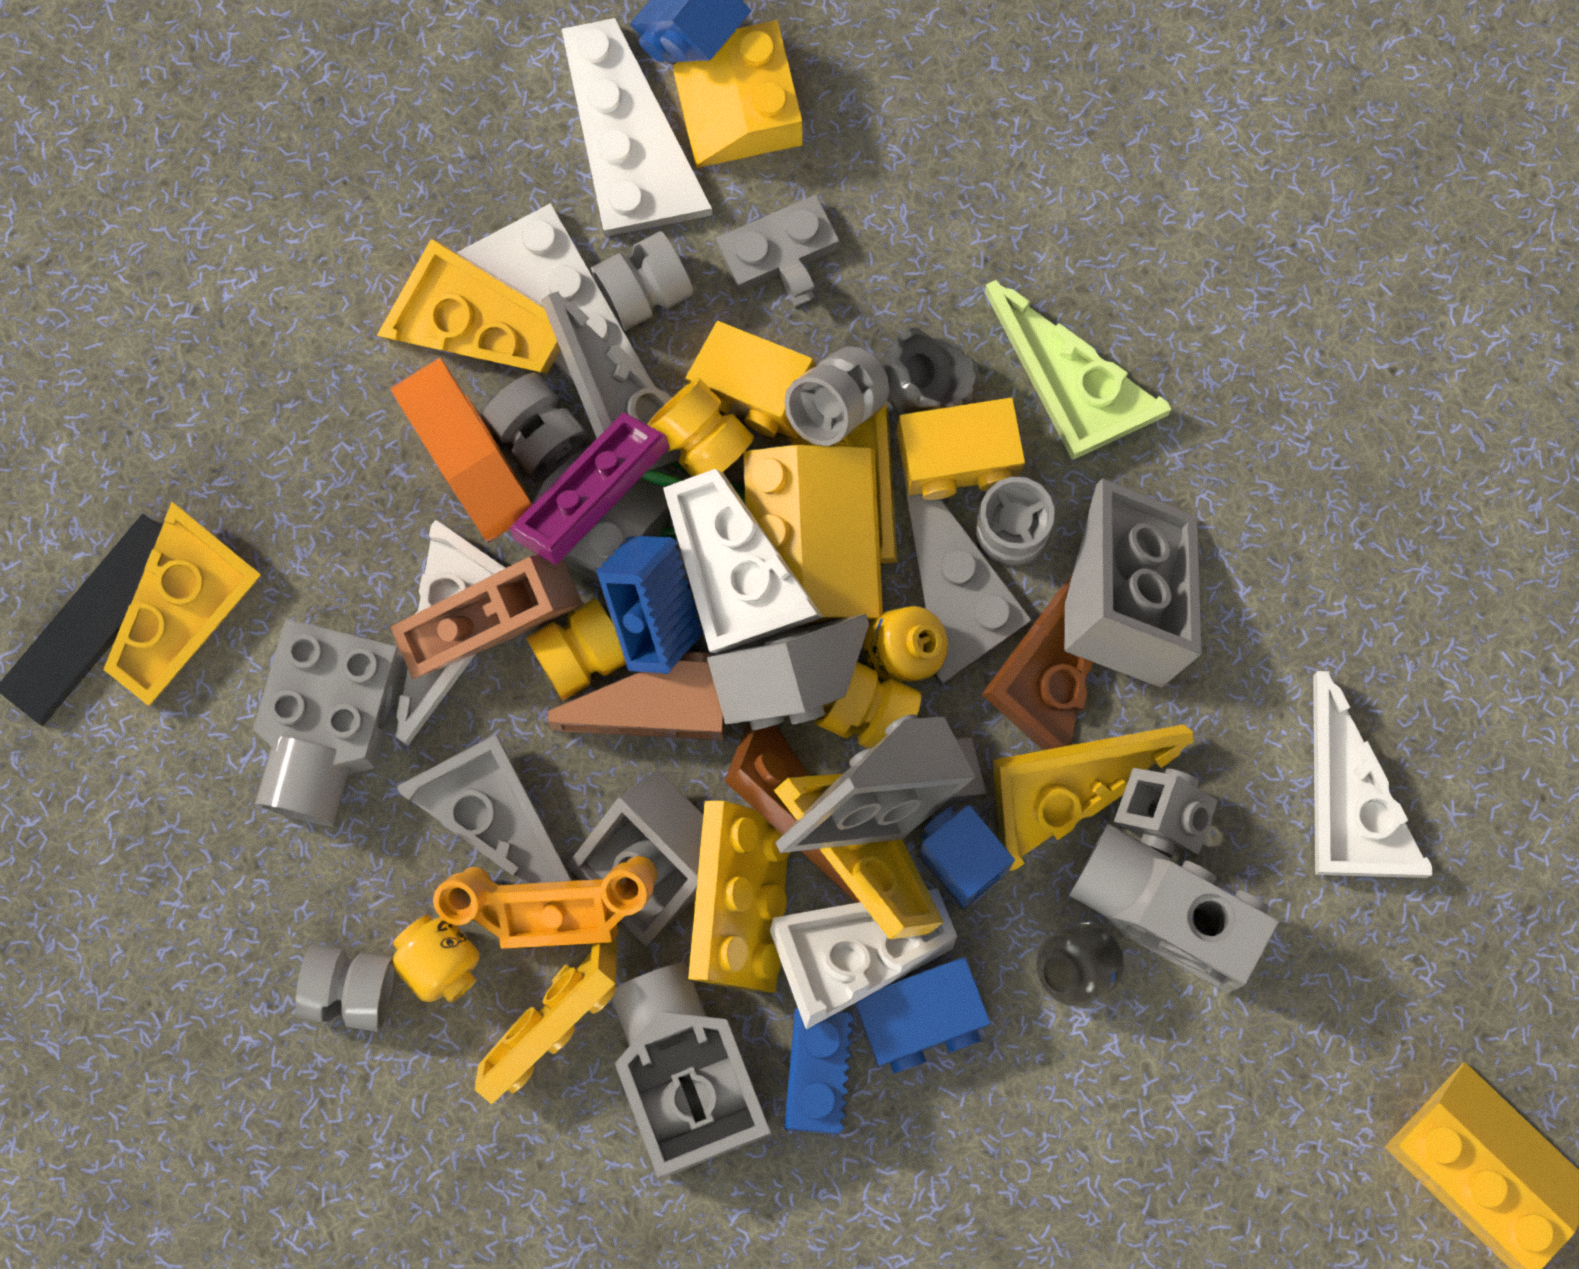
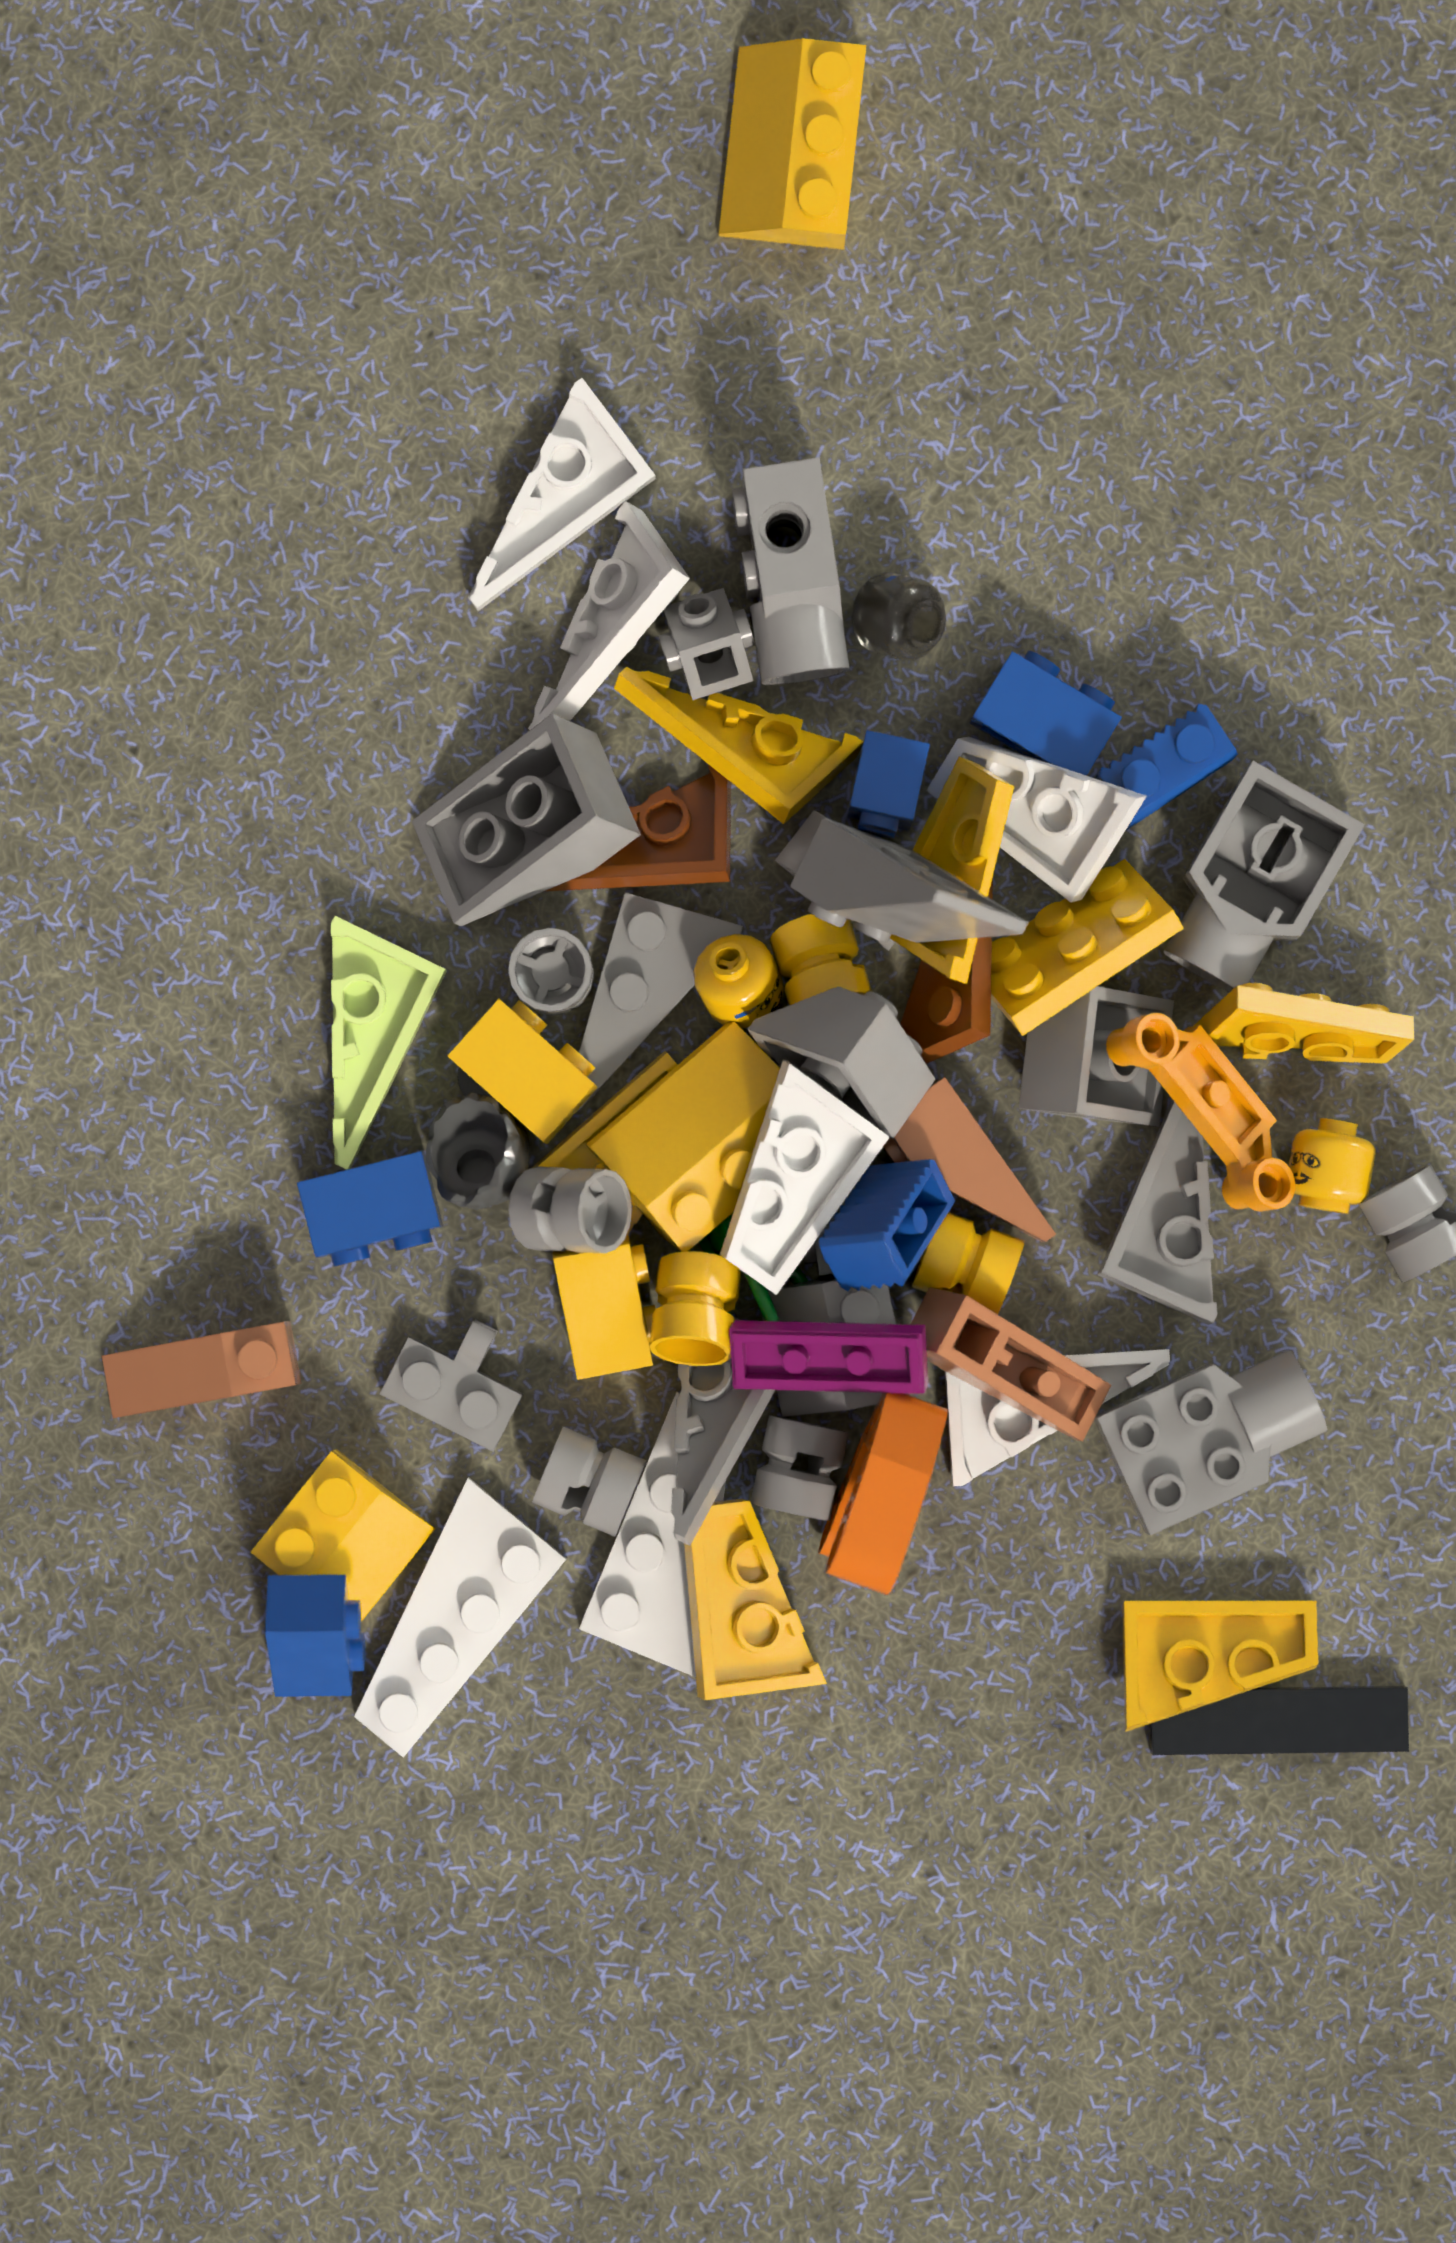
camera: 130 degrees left, 10 degrees up
(923, 98) = (201, 1369): none -> nougat slope
(948, 280) = (370, 1207): none -> blue brick
(1239, 765) = (614, 613): none -> white wing

